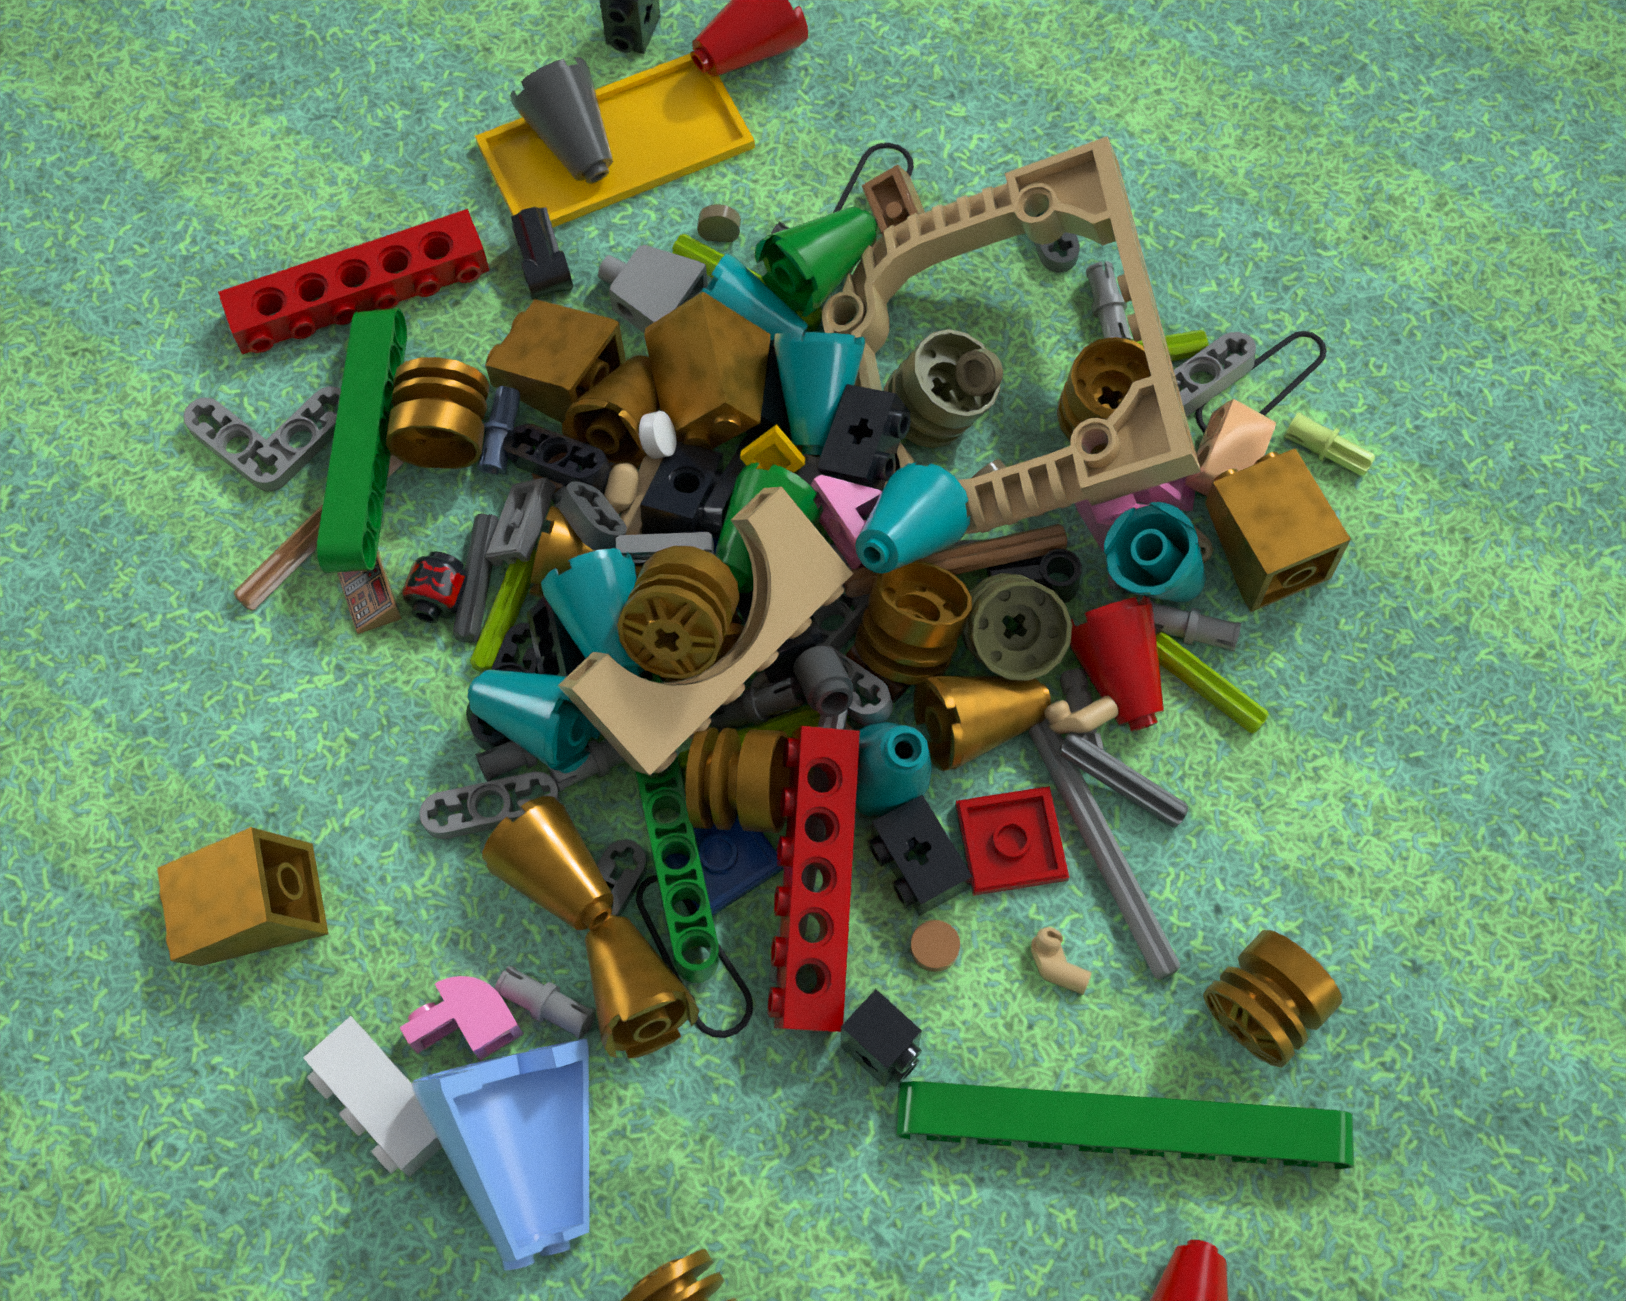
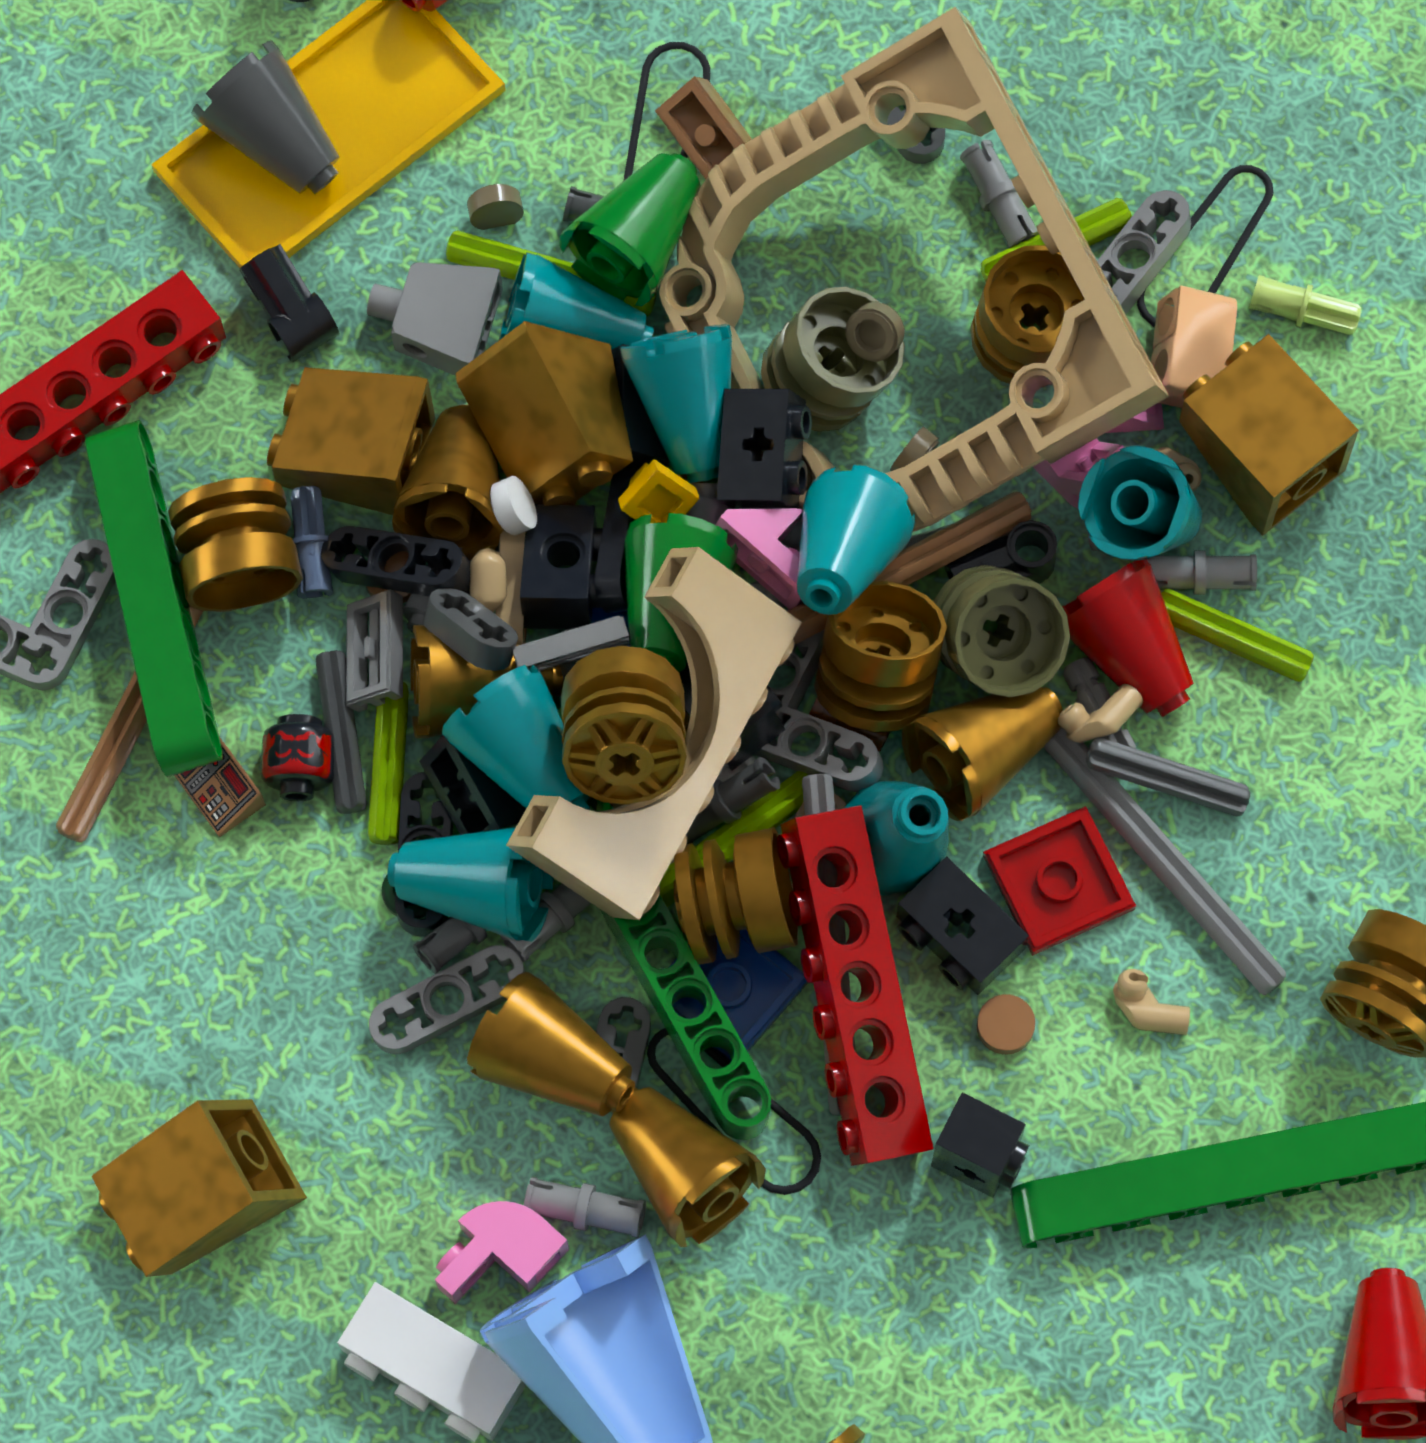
camera: 15 degrees left, 5 degrees up
(824, 681) = (798, 754): dark grey brick -> none

